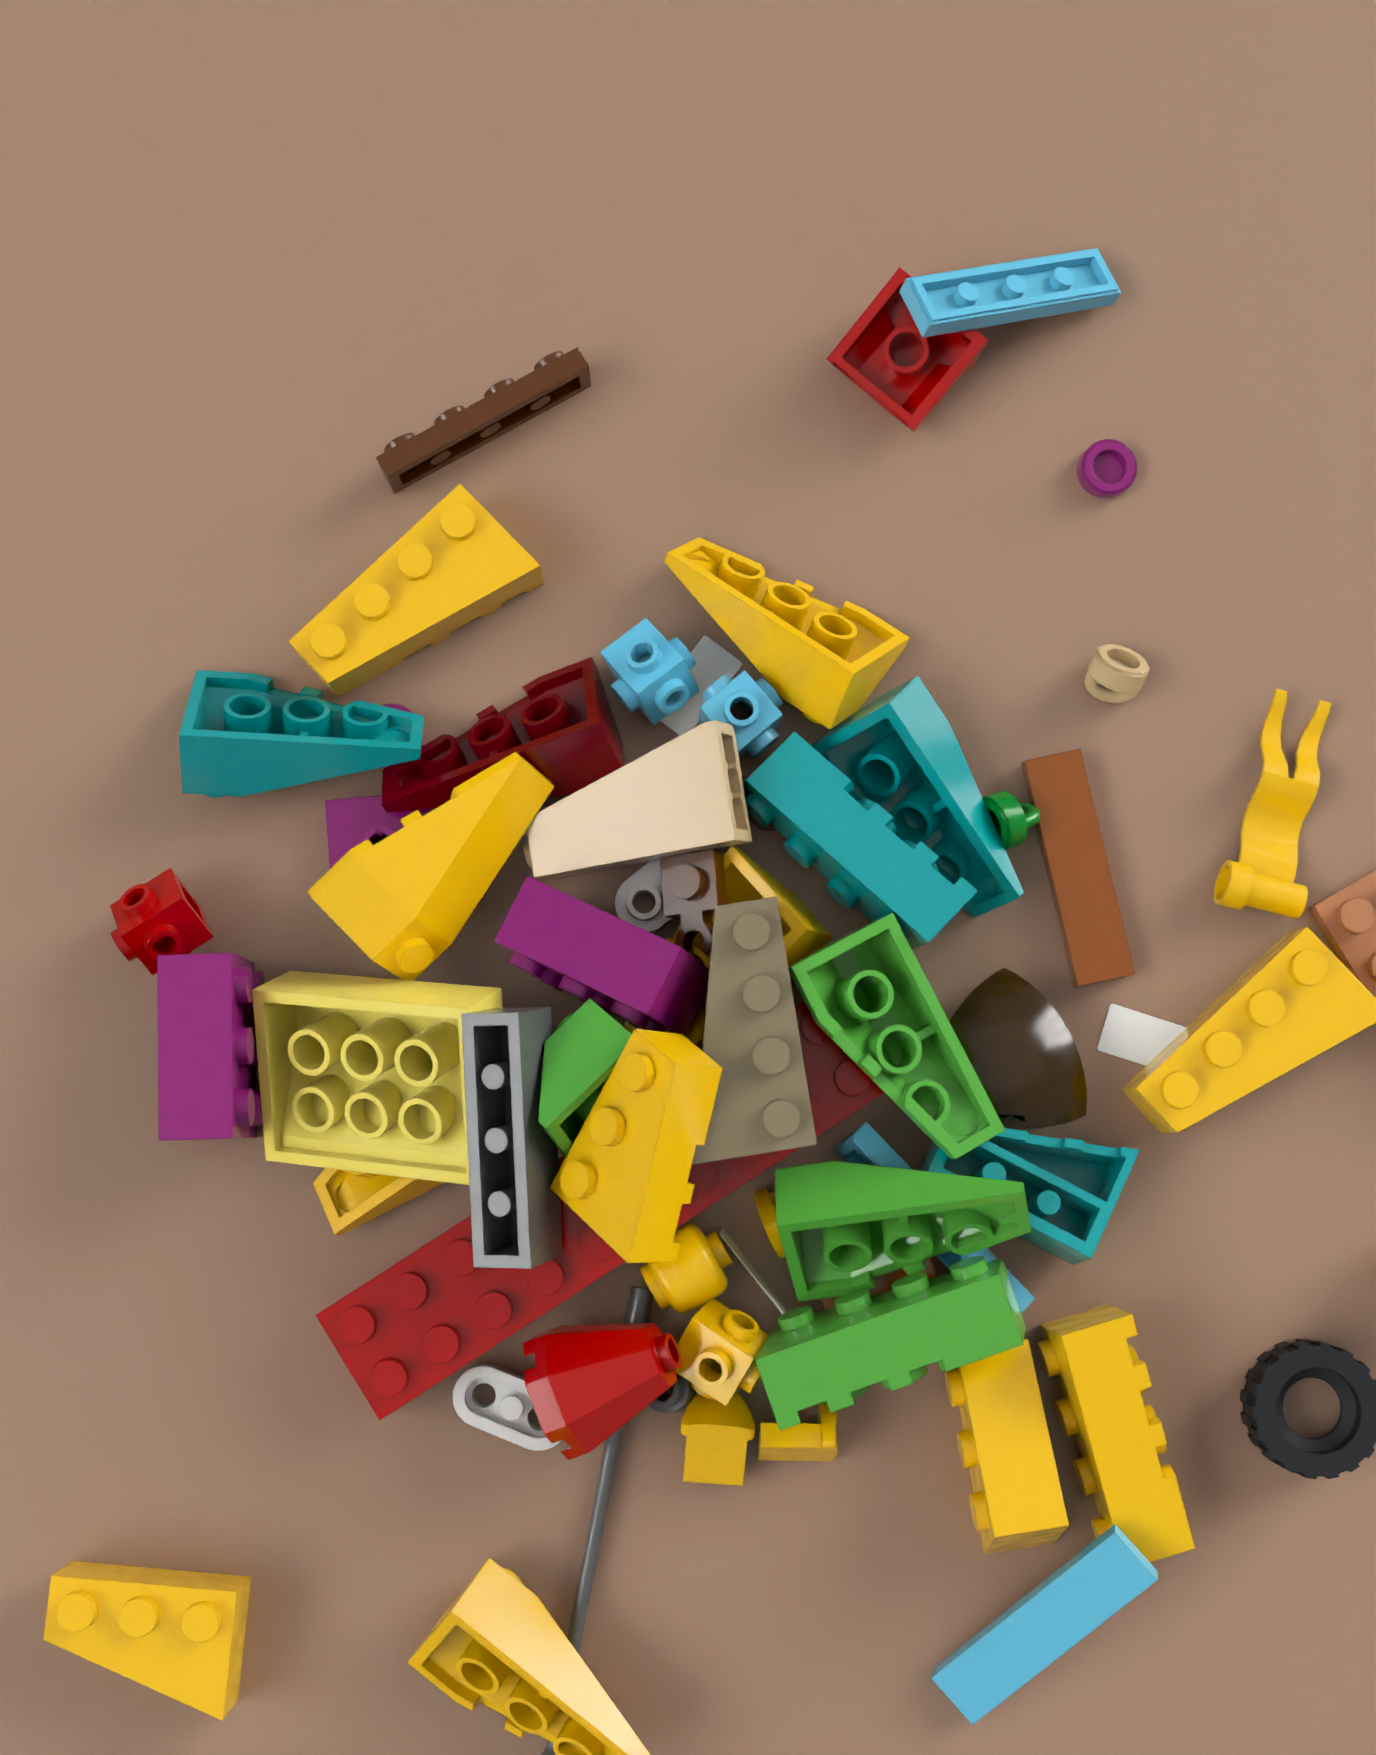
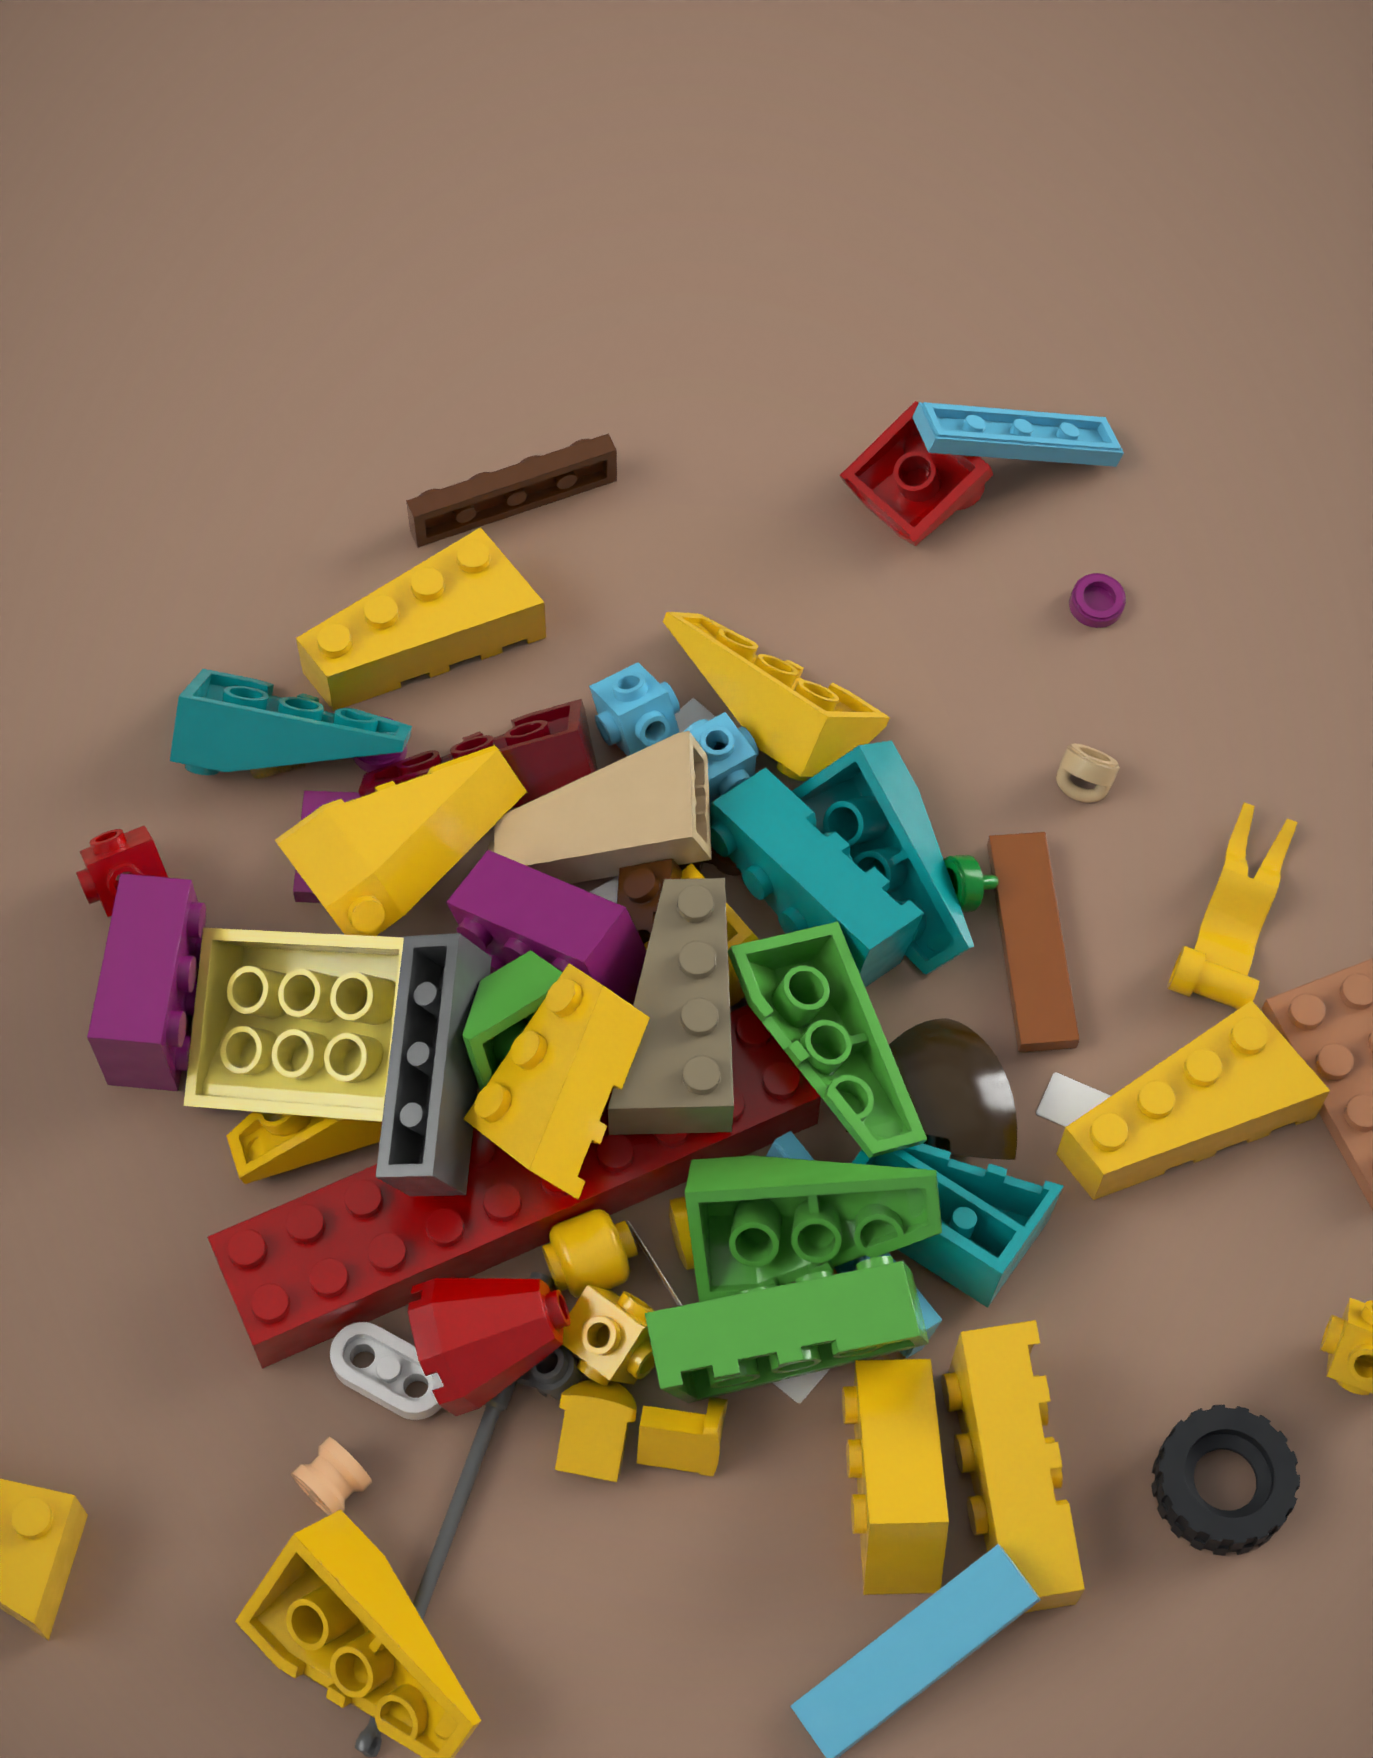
camera: 10 degrees right, 20 degrees down
(474, 1522) = (331, 1477): none -> light nougat wheel

